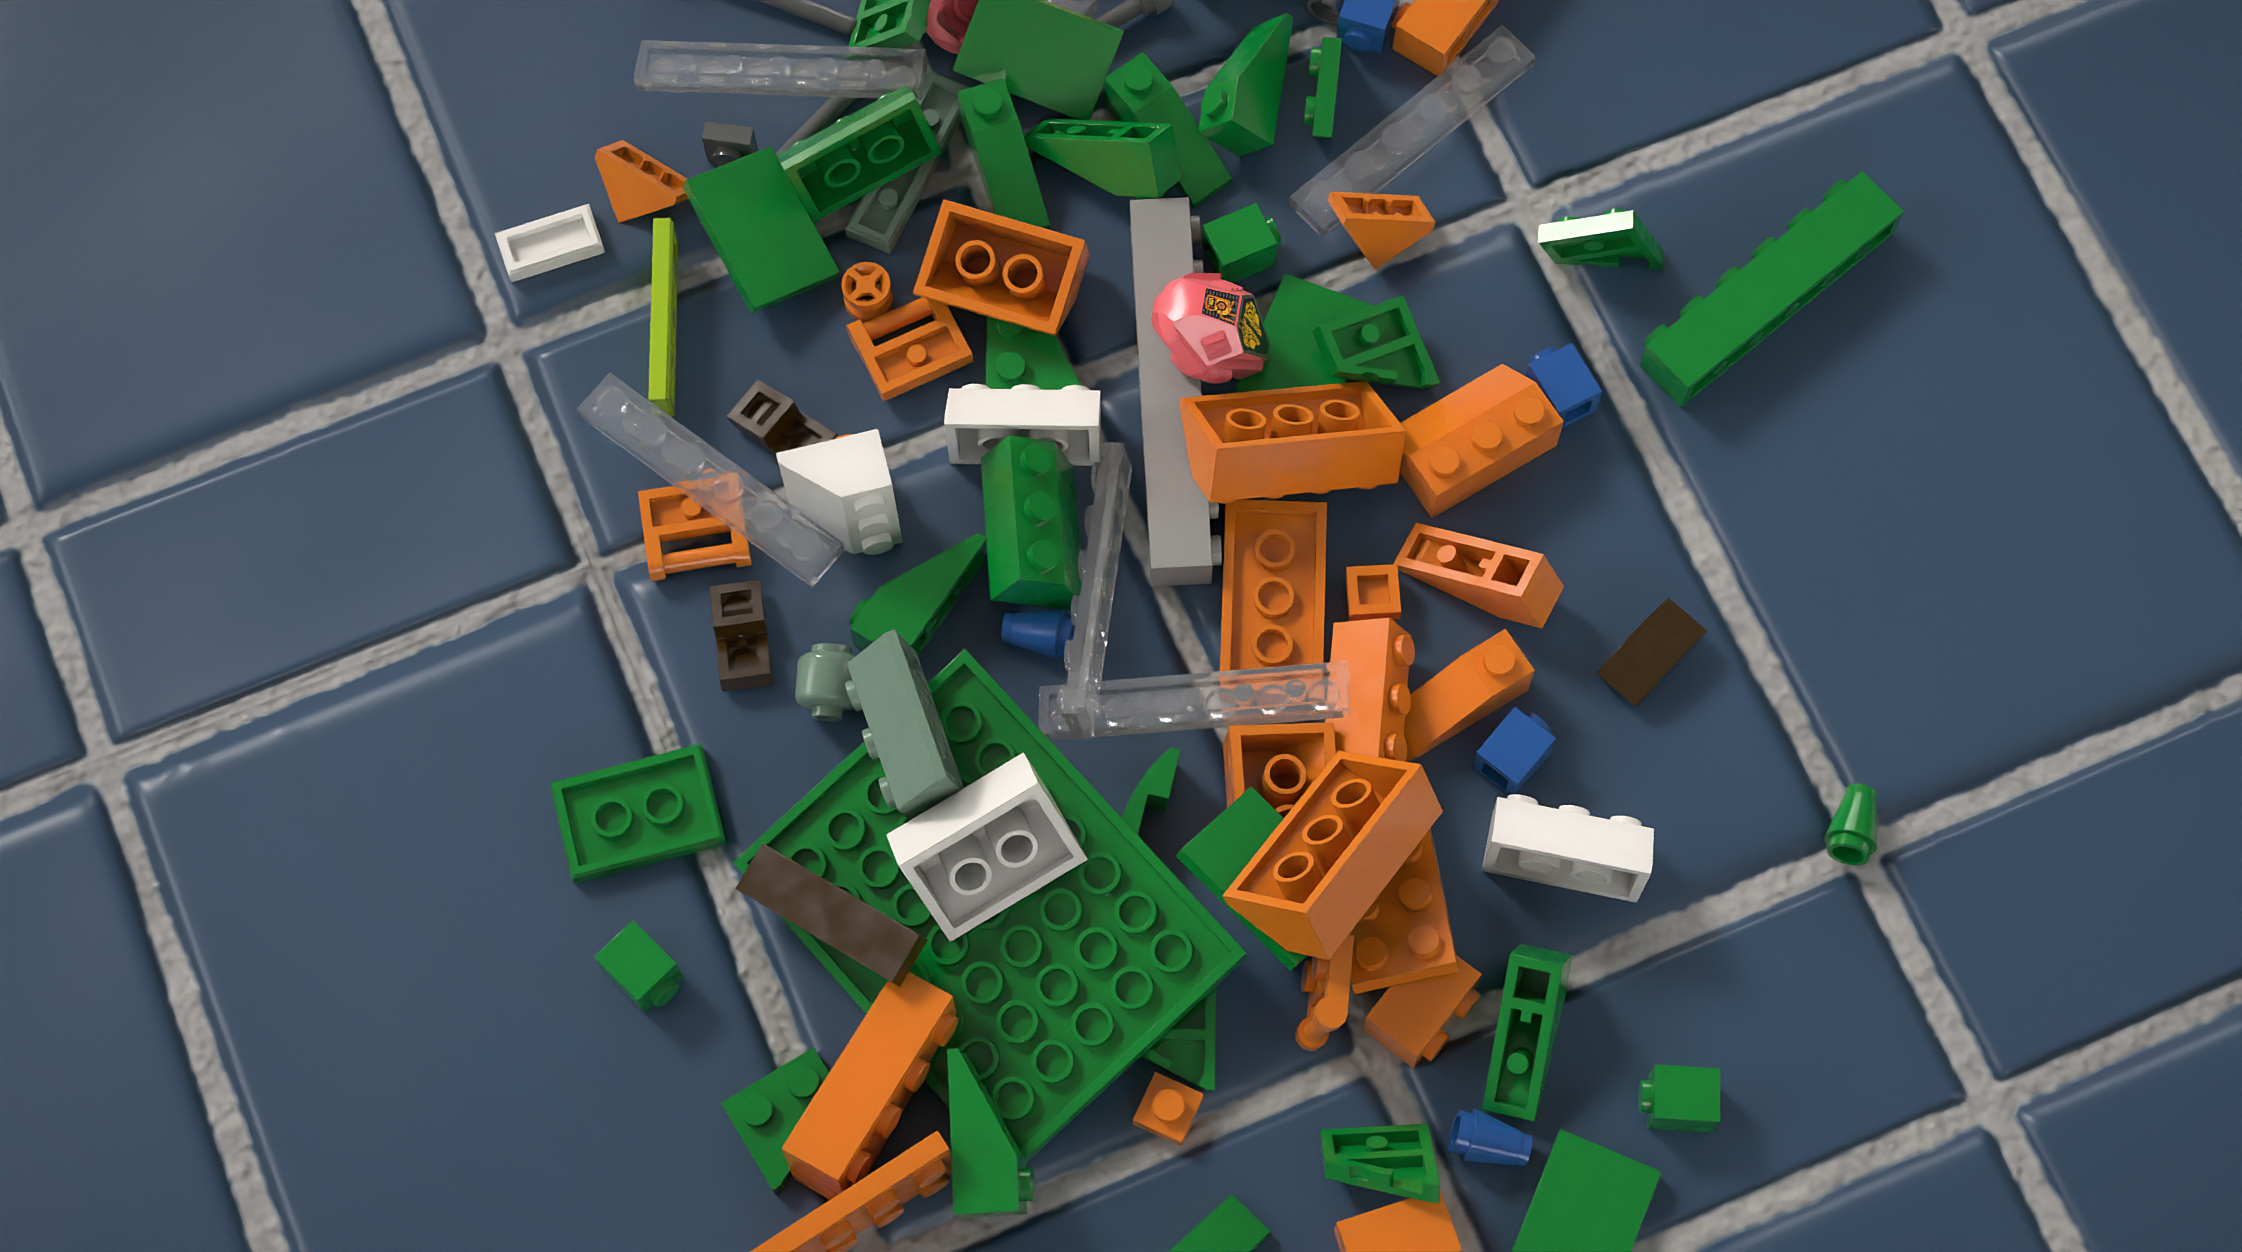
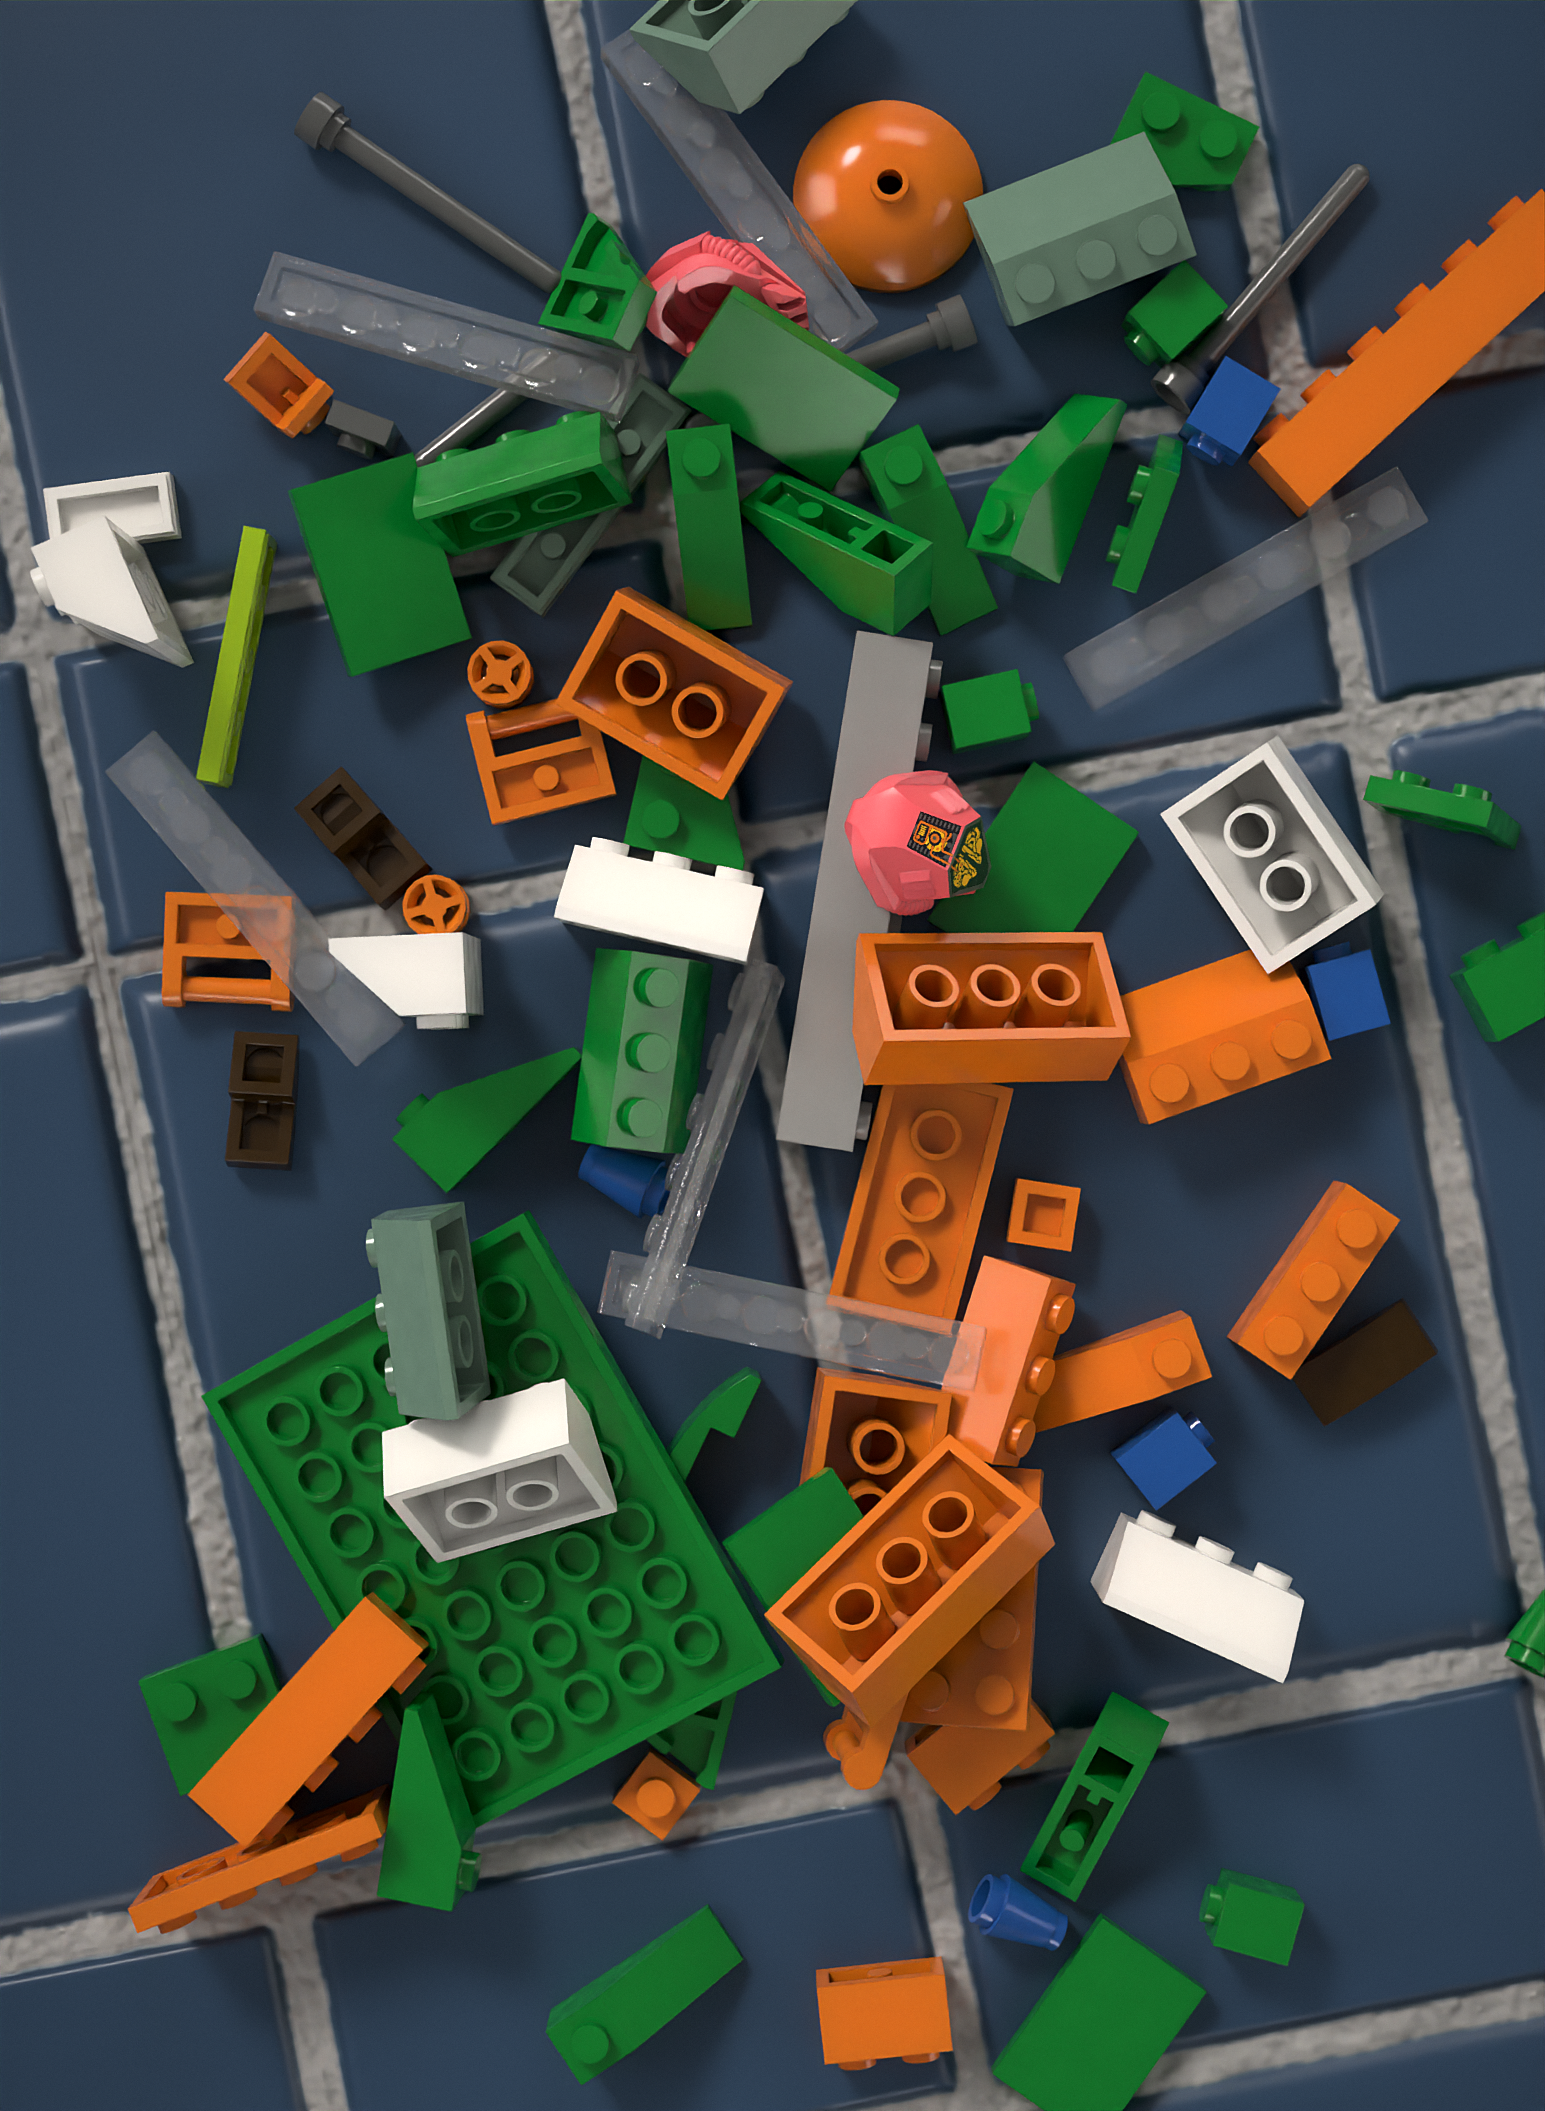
camera: 15 degrees right, 20 degrees up
(562, 275) = (109, 587): none -> white slope
(637, 181) = (241, 452): orange slope -> none
(637, 813) = (100, 1301): green tile -> none
(640, 967) = (70, 1502): green brick -> none
(662, 129) = (280, 387): none -> orange bracket
(822, 681) = (354, 1190): sand green head -> none
(831, 914) = (300, 1511): dark brown tile -> none
(1377, 347) = (1125, 893): green wing -> none
(1382, 222) = (1173, 716): orange slope -> none
(1383, 1159) = (889, 1918): green wing -> none
(1481, 294) = (1273, 855): none -> white slope
(1483, 573) = (1178, 1218): orange slope -> none
(1594, 594) = (1313, 1278): none -> orange brick

